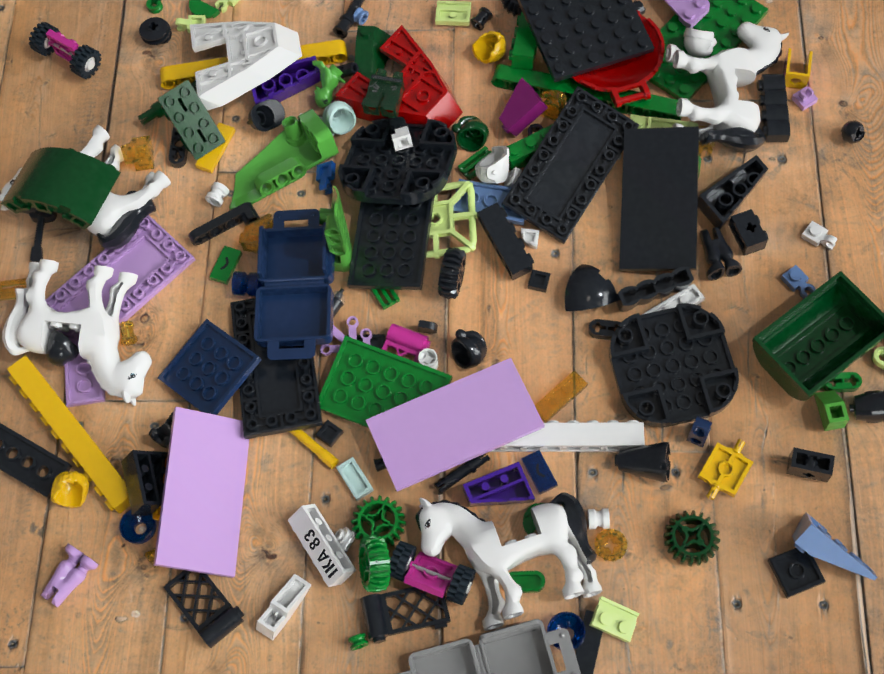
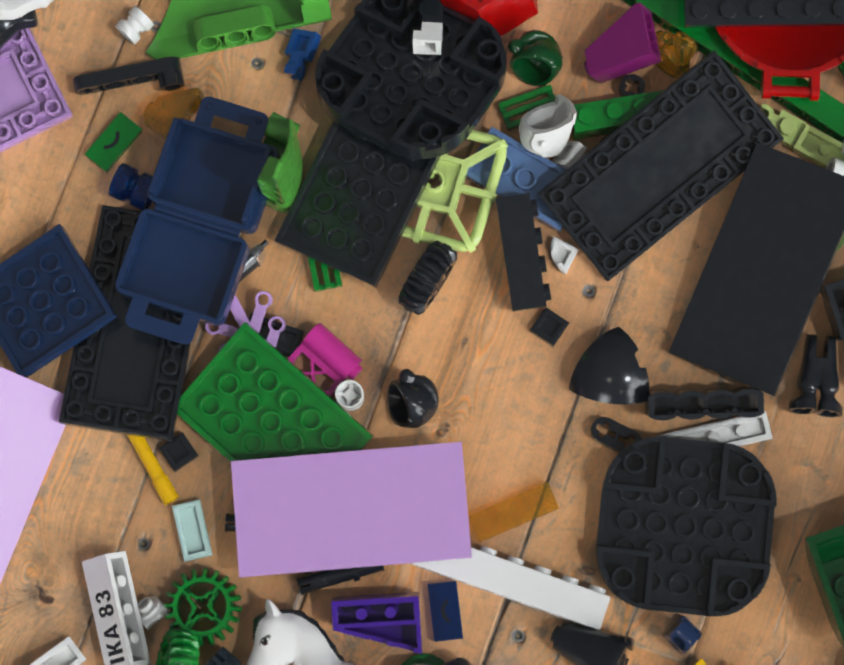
camera: 15 degrees right, 15 degrees up
(427, 327) = (366, 344): black tile -> none

